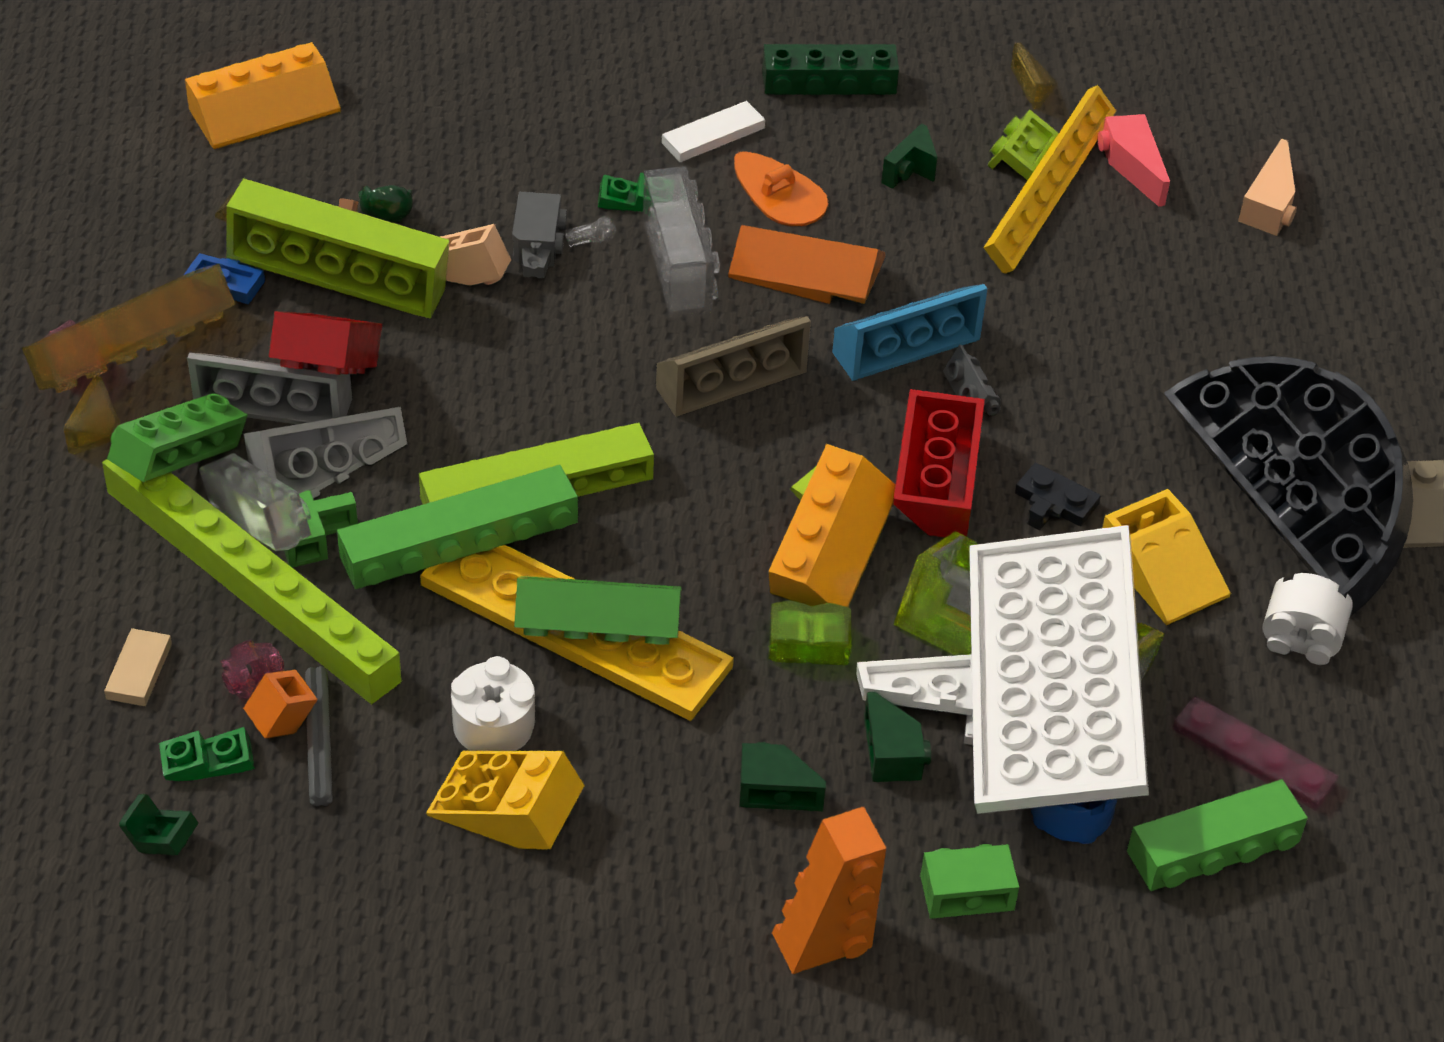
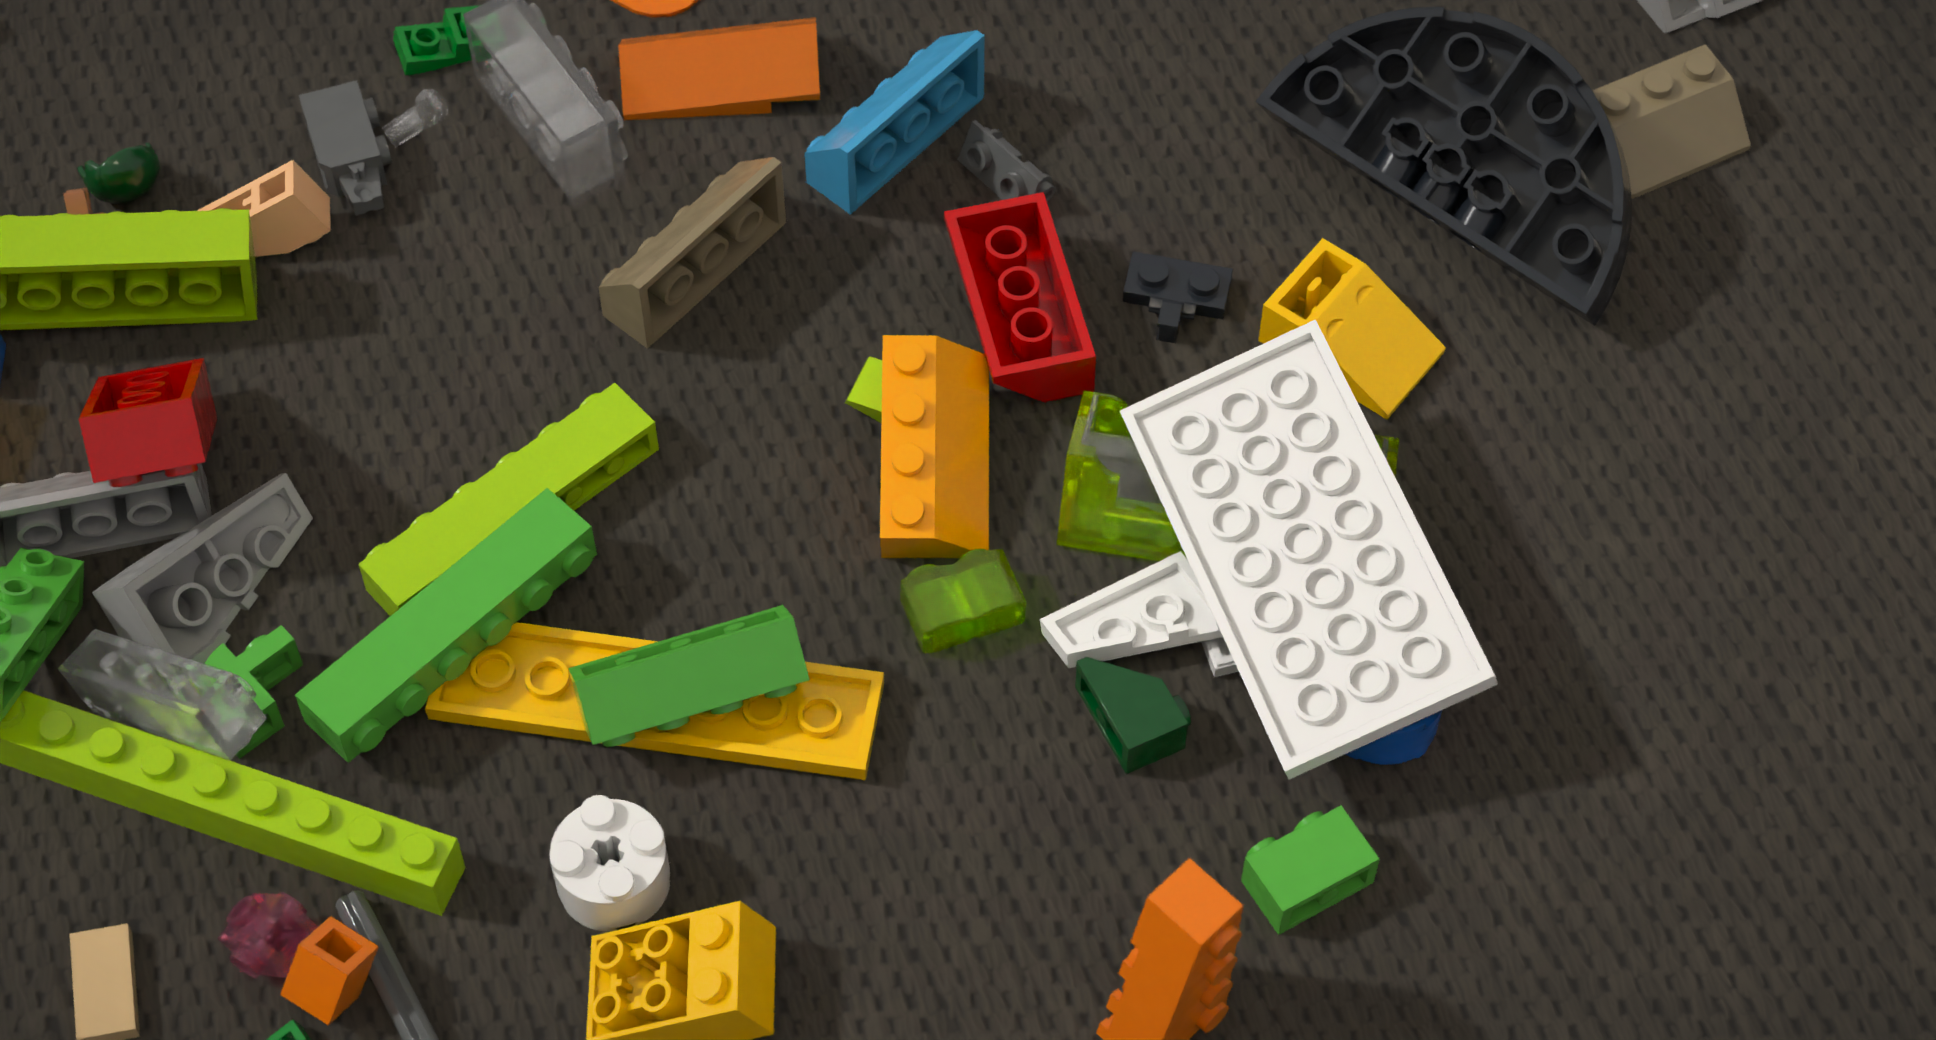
camera: 20 degrees left, 10 degrees up
(778, 779) = (1014, 821): dark green slope -> none
(1216, 835) = (1576, 691): bright green brick -> none
(1254, 752) = (1565, 555): clear pink plate -> none
(1307, 617) = (1557, 352): white brick -> none

